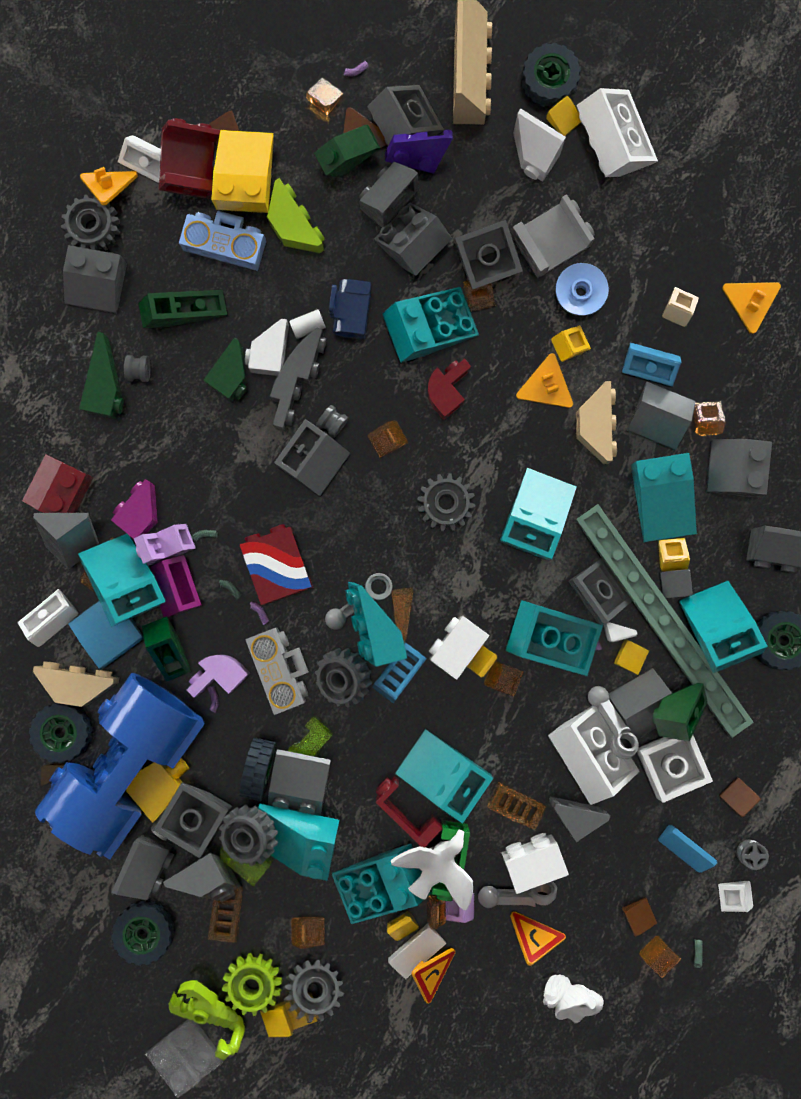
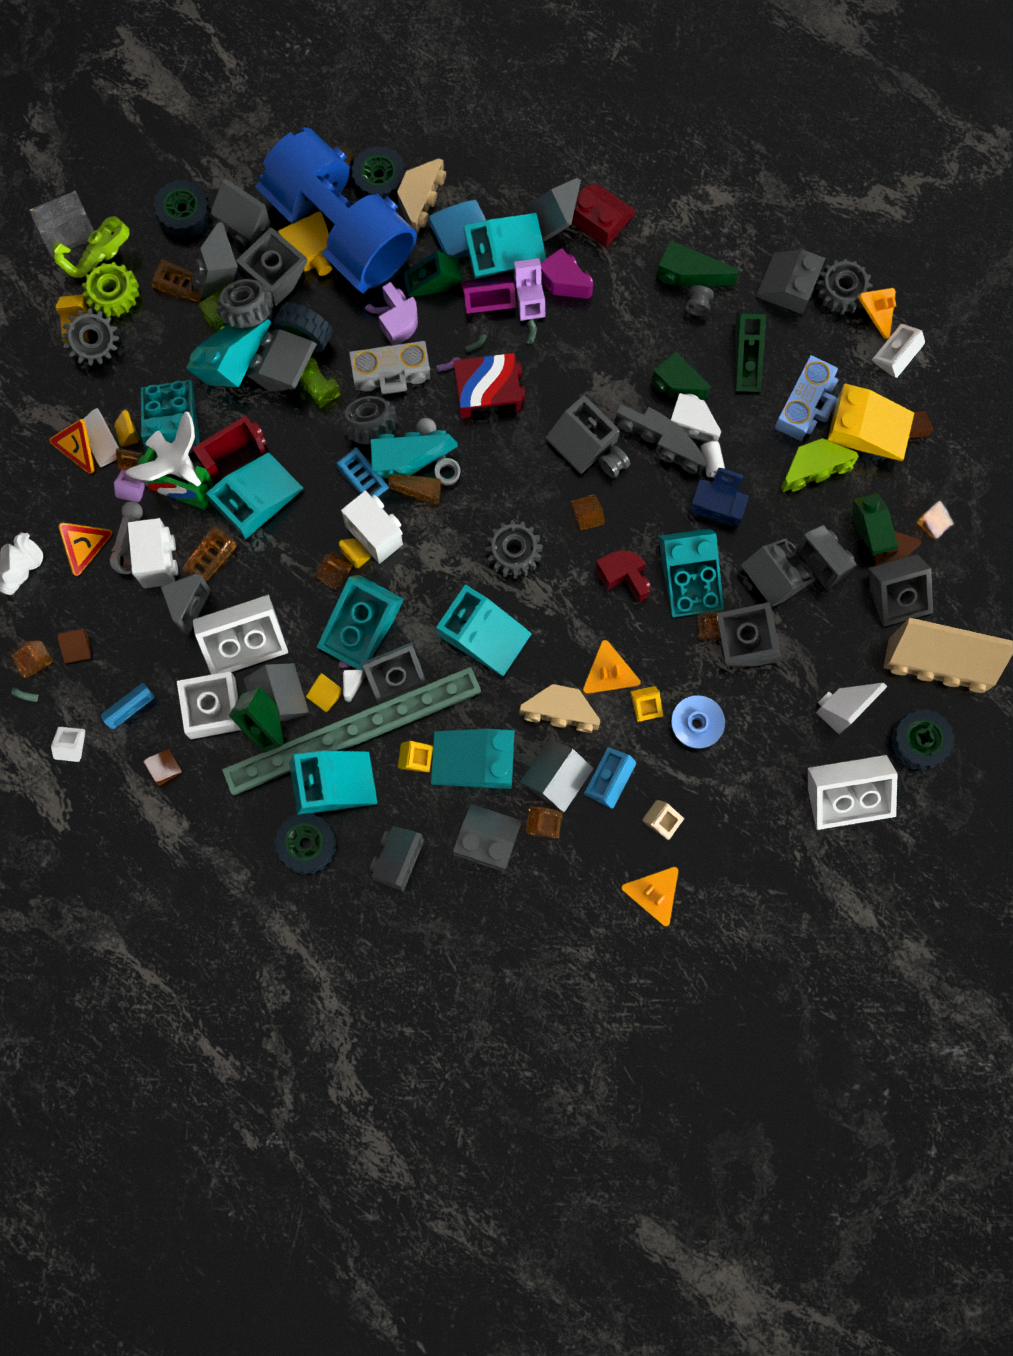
camera: 95 degrees right, 10 degrees down
(47, 618) = (484, 185): white slope -> none
(187, 158) = (894, 378): dark red panel -> none
(307, 932) = (144, 349): clear orange slope -> none
(354, 72) = (956, 554): lavender leg -> none
(418, 150) = (863, 589): dark purple wing -> none
(553, 236) = (755, 706): light grey panel -> none
(564, 116) = (878, 743): yellow slope -> none
(599, 697) = (292, 654): light grey piece -> none
(676, 583) = (385, 752): dark grey slope -> none
(756, 858) = (100, 761): dark grey wheel -> none

